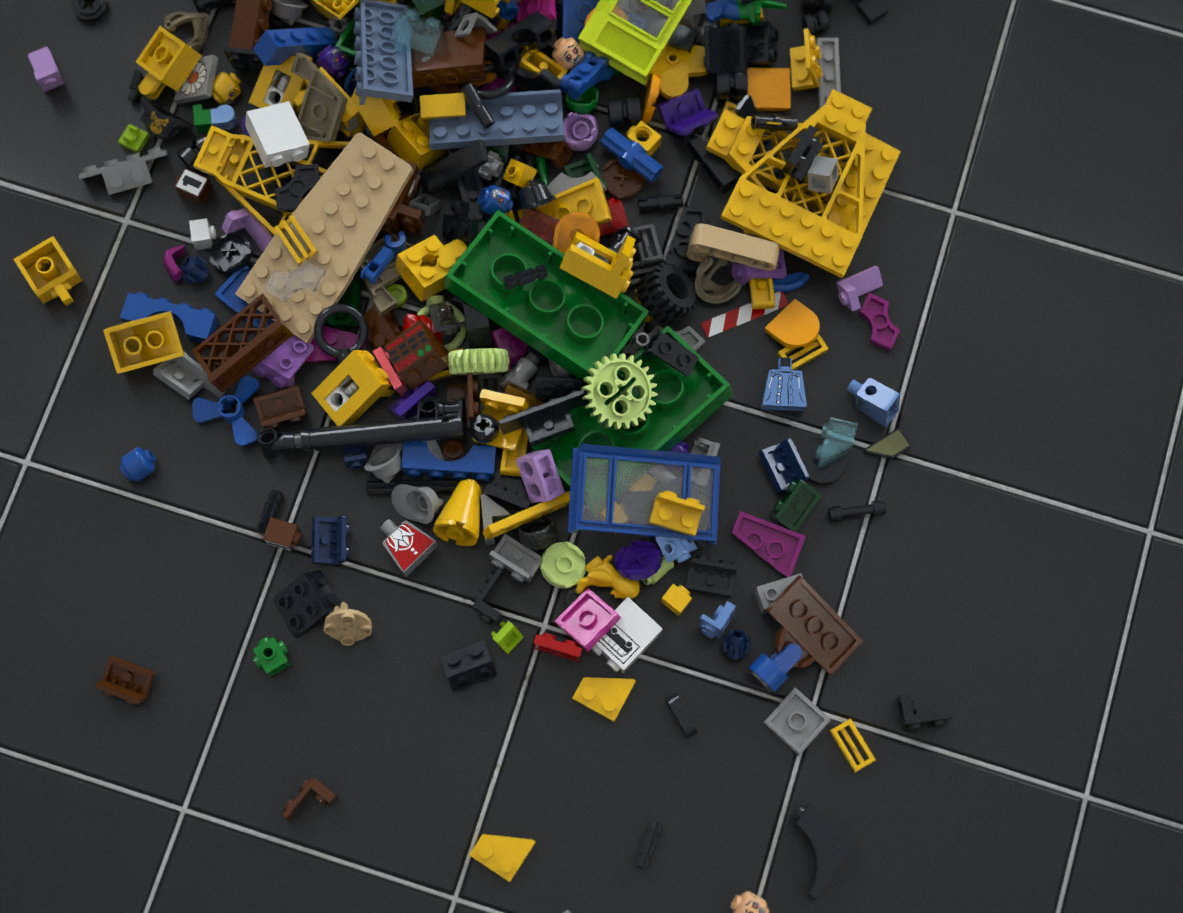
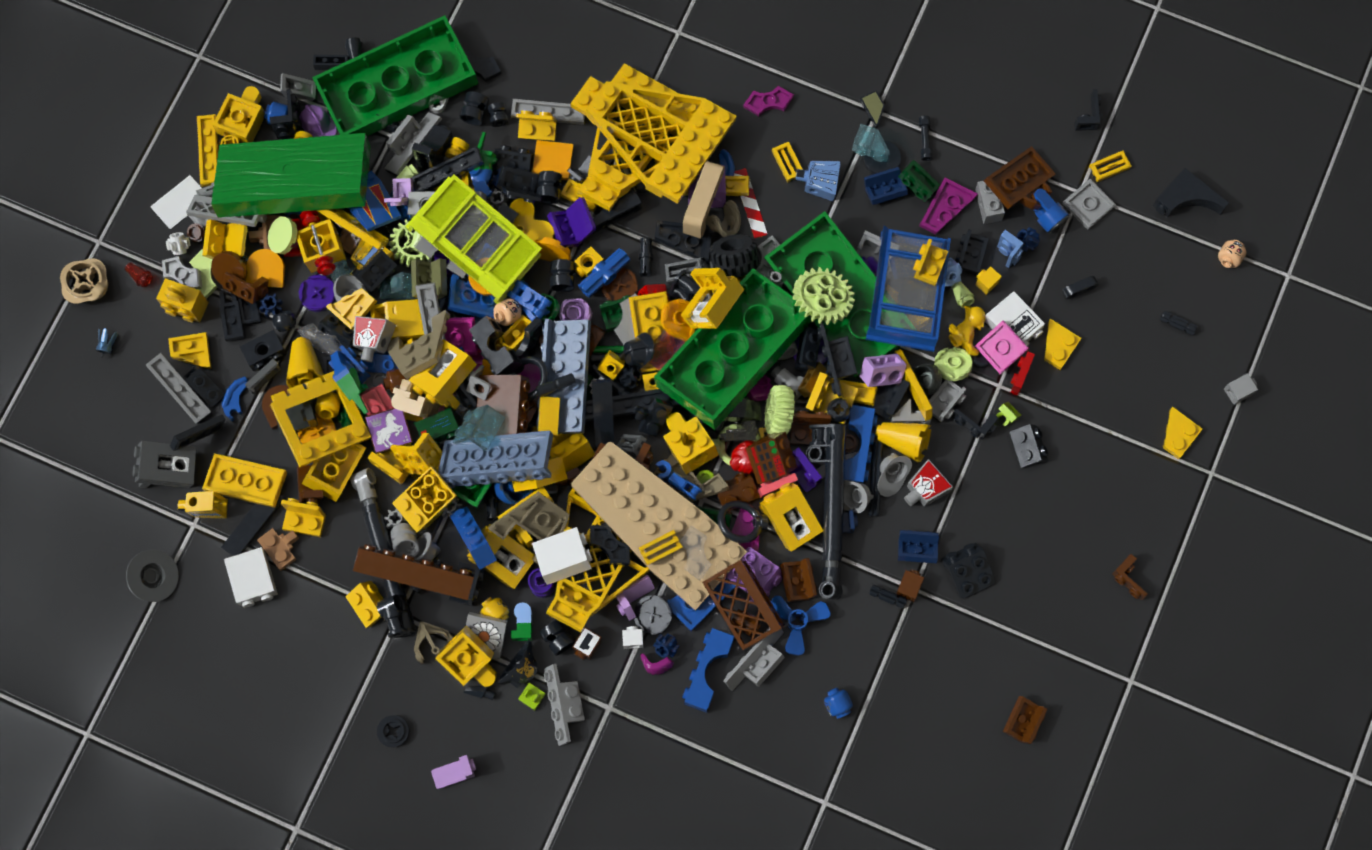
camera: 80 degrees left, 0 degrees up
(49, 271) = (659, 760): yellow hinge -> none
(143, 342) = (733, 687): yellow slope -> none
(274, 663) = (1016, 593): green brick -> none
(333, 61) = (488, 510): dark purple head -> none
(347, 625) = (993, 535): tan plate -> none
(494, 199) = (638, 383): blue head -> none
(525, 277) = (718, 359): black axle -> none
(638, 560) = (957, 304): dark purple tile -> none
(670, 353) = (791, 255): black bracket -> none
(787, 124) = (598, 151): black pin -> none
(794, 326) = (767, 163): light orange tile -> none
(803, 155) = (633, 130): black bracket -> none
(823, 174) = (652, 117): light grey brick -> none
(857, 285) = (744, 118): lavender bracket -> none
(875, 400) = (838, 110): medium blue torso -> none

